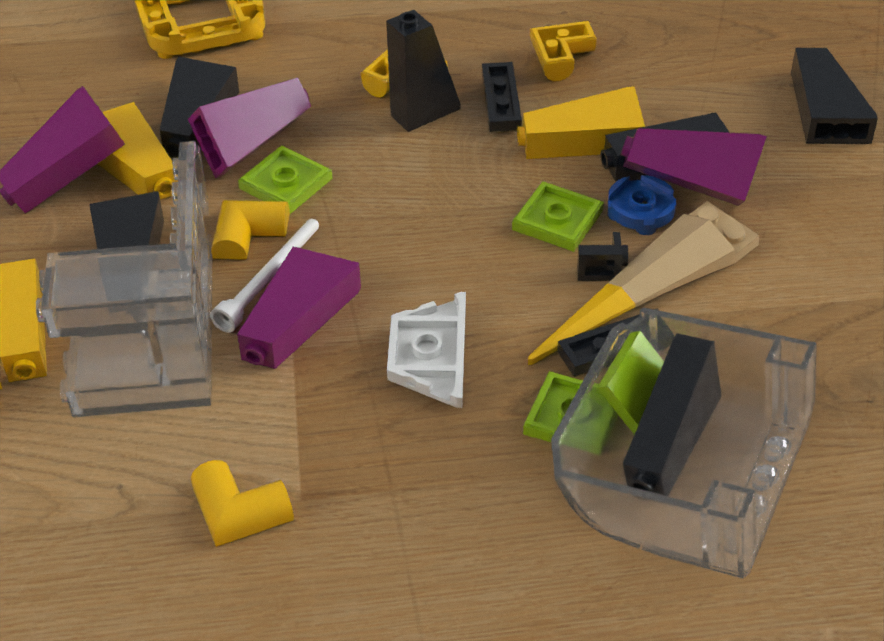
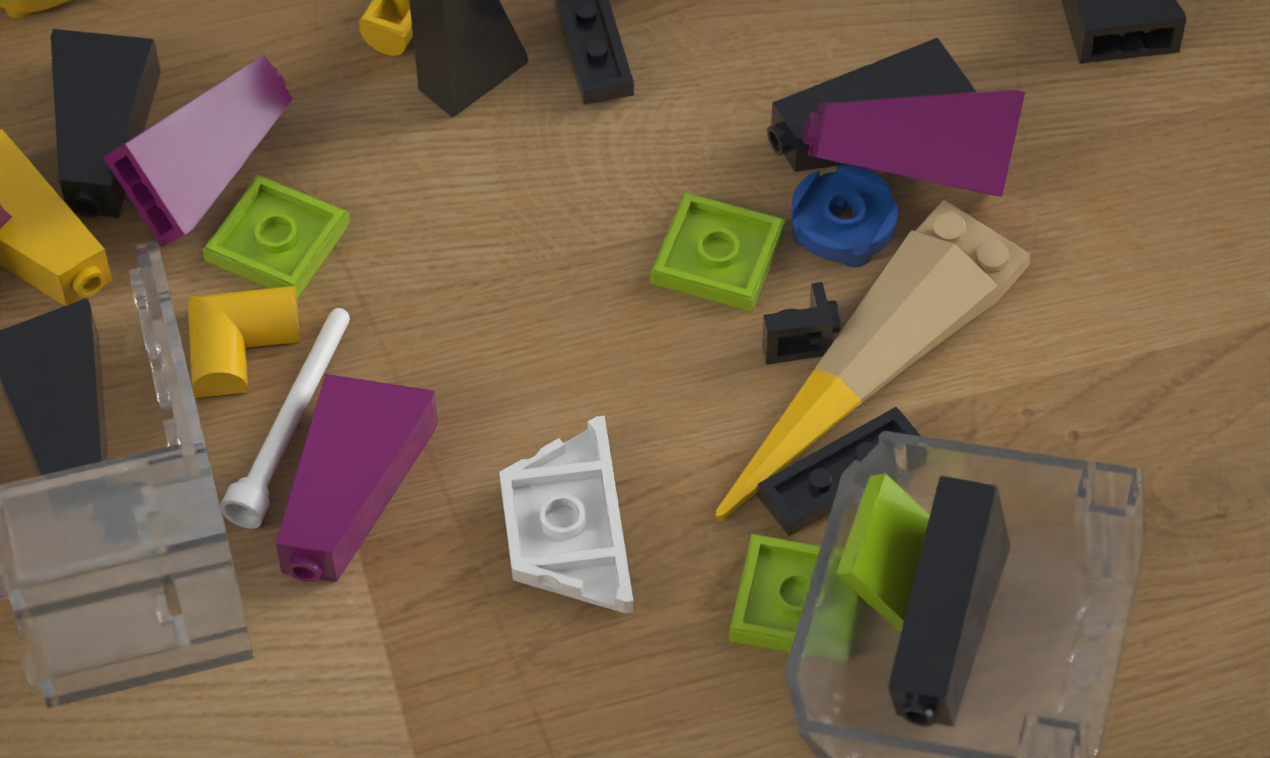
camera: 10 degrees left, 10 degrees up
(579, 125) = (730, 79): yellow slope -> none

